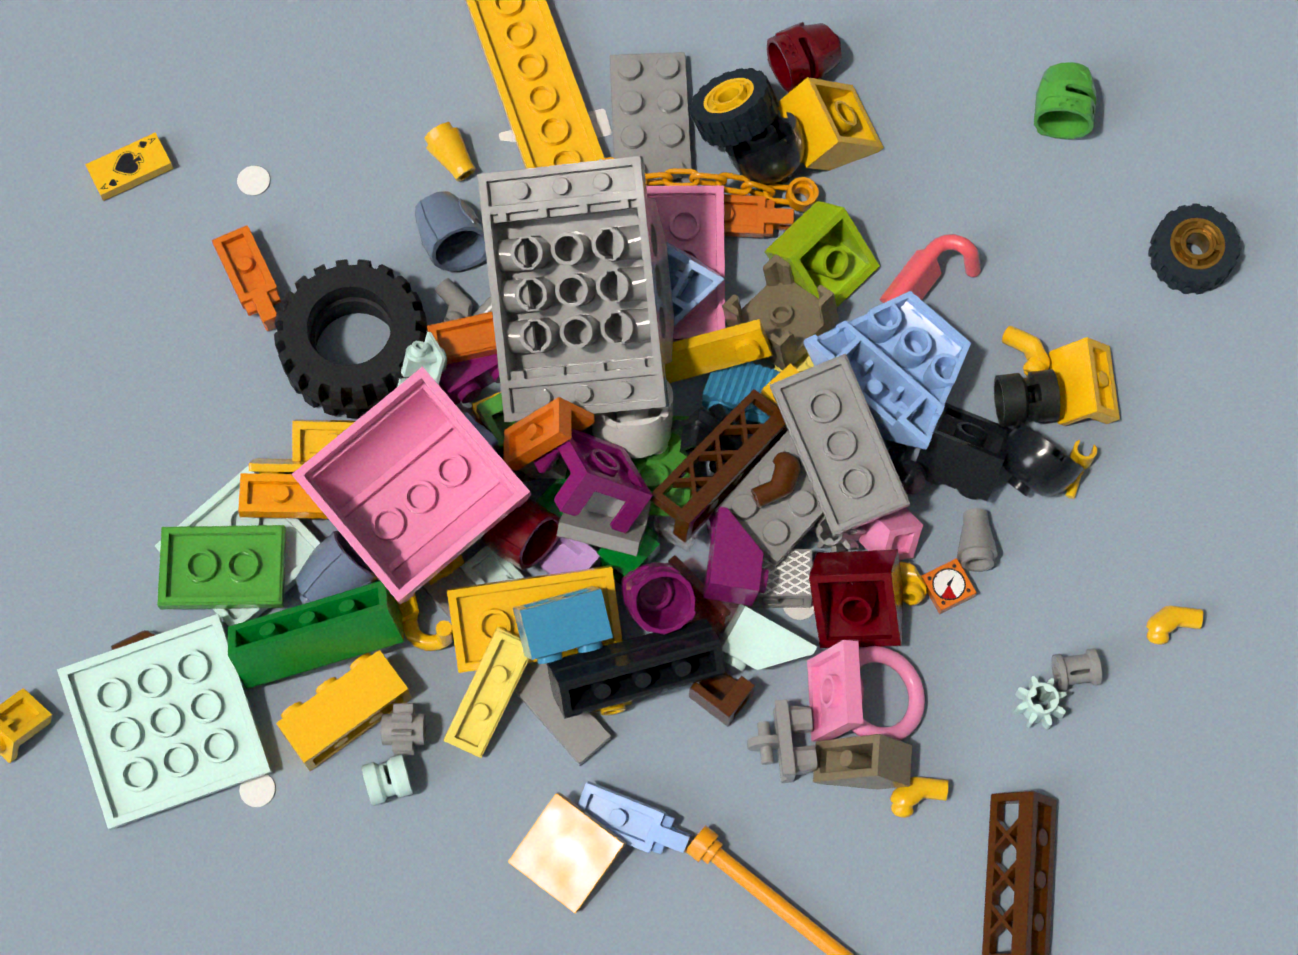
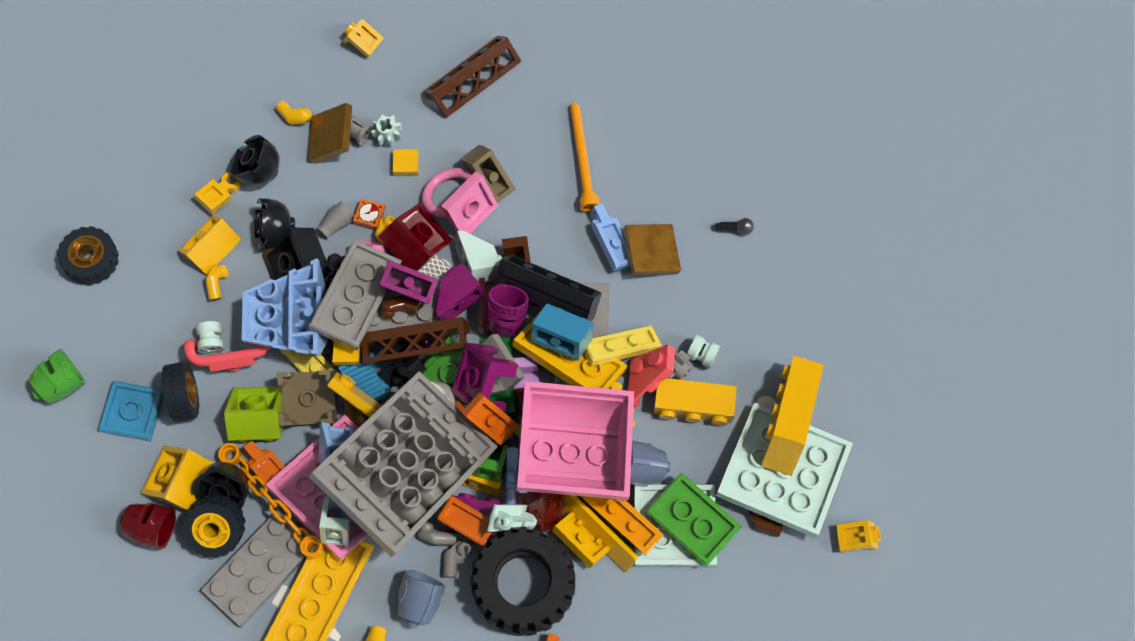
camera: 135 degrees left, 0 degrees up
(205, 787) = (792, 415): none -> yellow wedge
(315, 634) = (680, 441): green brick -> none
(424, 686) = (650, 370): none -> coral wing
(789, 501) = (407, 282): none -> magenta brick
(791, 759) = (513, 214): light grey hips -> none
(919, 195) = (180, 391): none -> black wheel
(920, 787) = (470, 142): yellow arm -> none
(956, 149) = (131, 411): none -> dark azure tile
(961, 285) = (210, 339): none -> light aqua wheel
(976, 689) = (405, 162): none -> yellow tile
(1012, 397) = (240, 255): pearl dark grey wheel -> none
(1083, 461) = (250, 218): yellow hand -> none
(1097, 630) = (330, 133): none -> pearl gold tile
(1138, 511) = (256, 162): none -> black cylinder
(1143, 439) = (216, 195): none -> yellow plate
(1205, 796) = (362, 37): none -> yellow bracket

